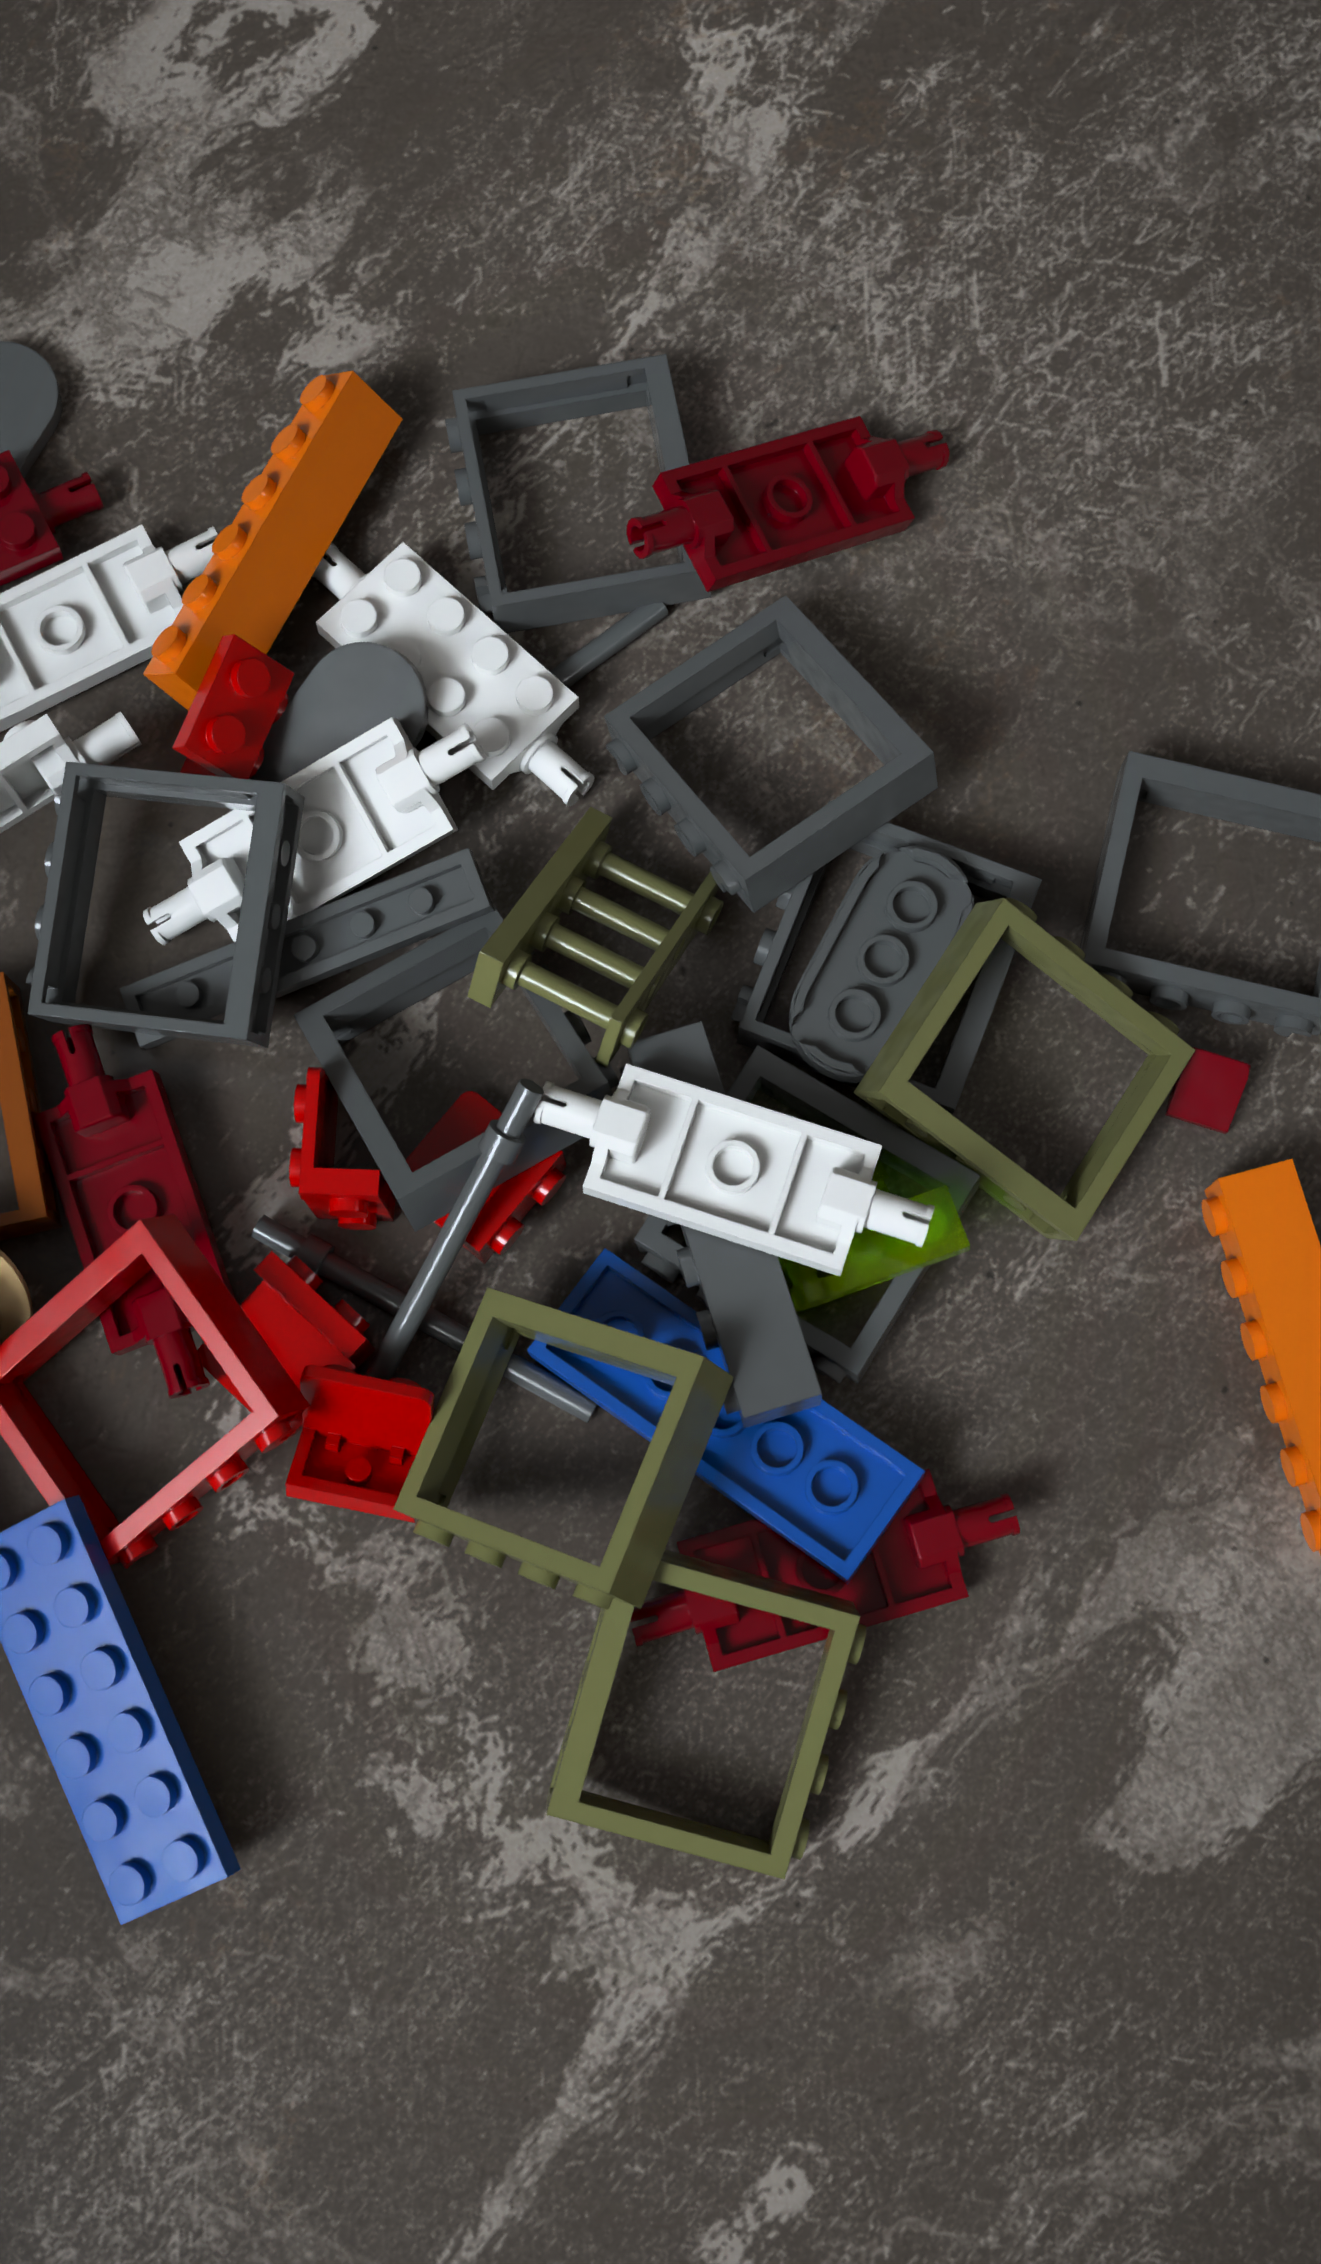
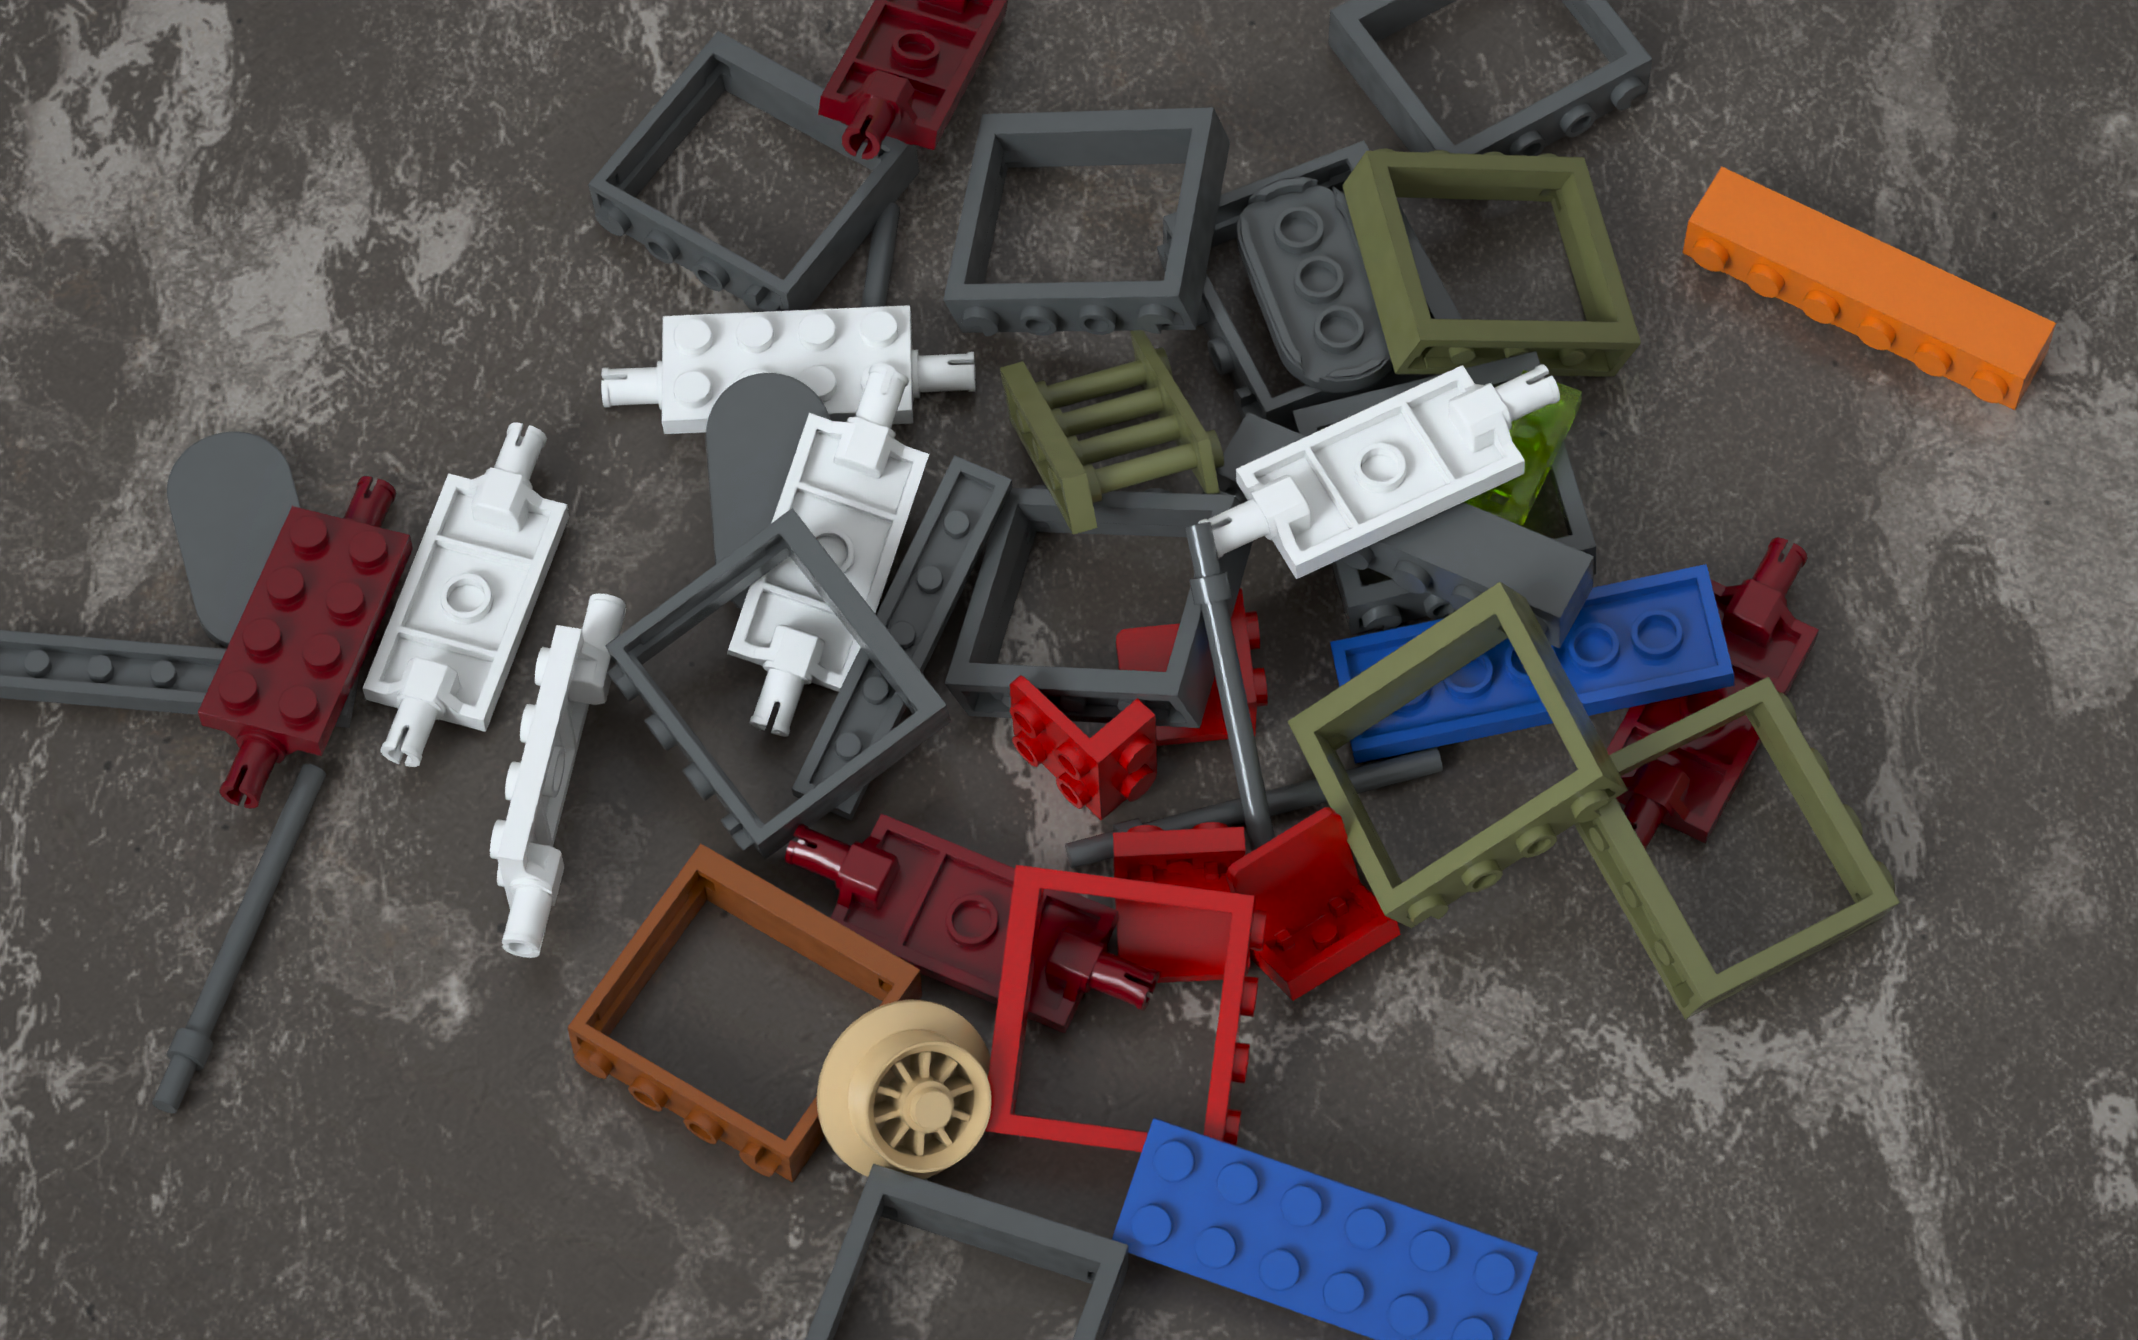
camera: 45 degrees left, 15 degrees down
(233, 711) = (678, 526): red bracket -> none
(279, 531) = (573, 397): orange brick -> none
(1208, 1090) = (1620, 182): dark red slope -> none

